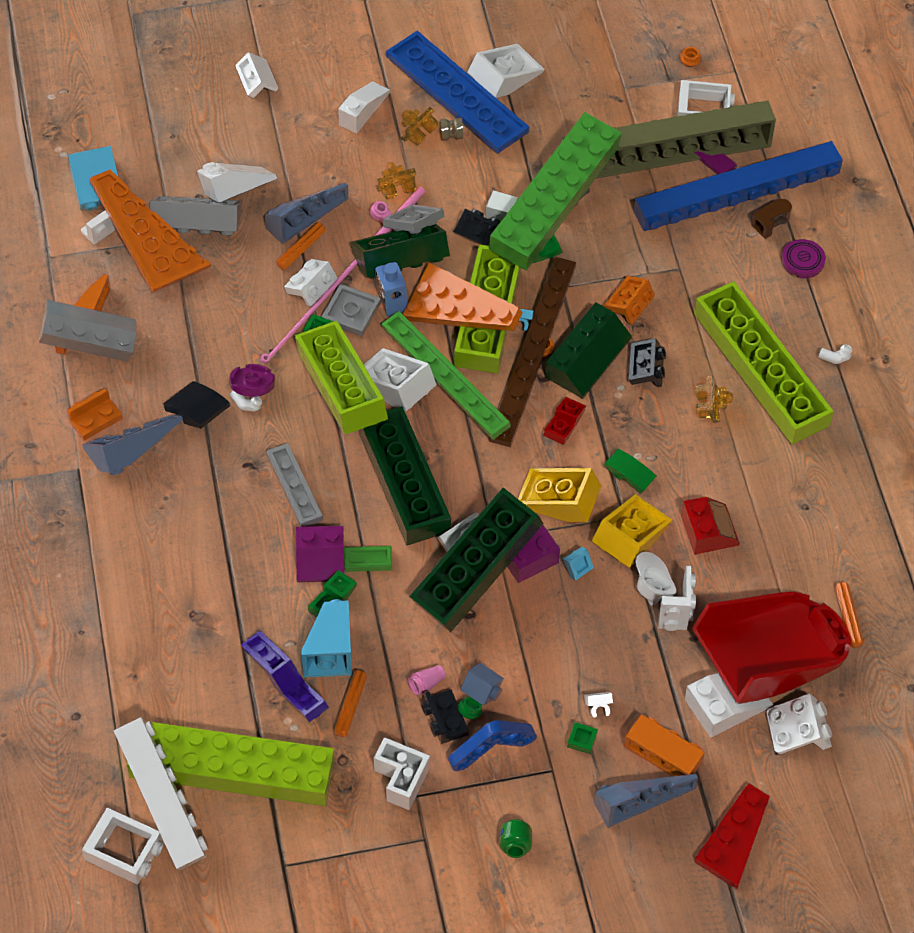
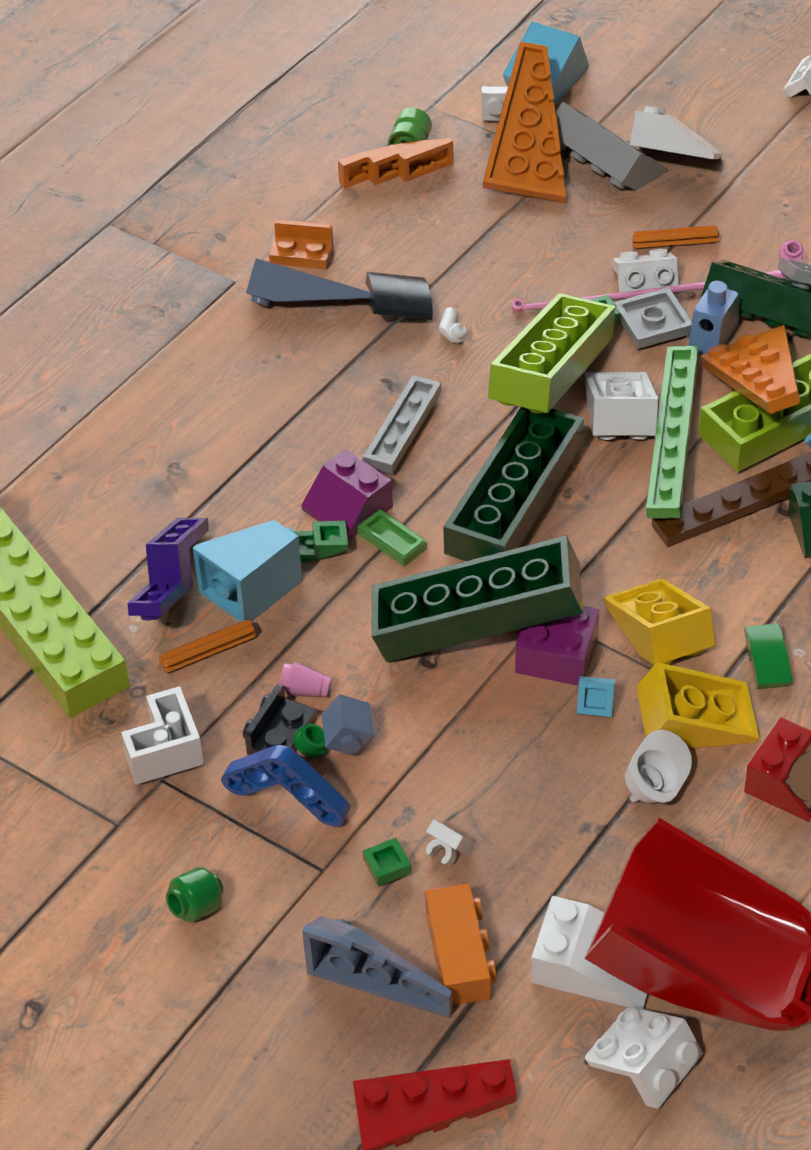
camera: 50 degrees right, 10 degrees down
(67, 285) = (410, 126): none -> bright green wheel
(88, 331) = (374, 169): light grey slope -> none
(252, 381) = (477, 312): magenta tile -> none
(298, 214) = (704, 204): sand blue wedge -> none
(564, 421) = (760, 561): red slope -> none
(678, 611) = (635, 812): white bracket -> none

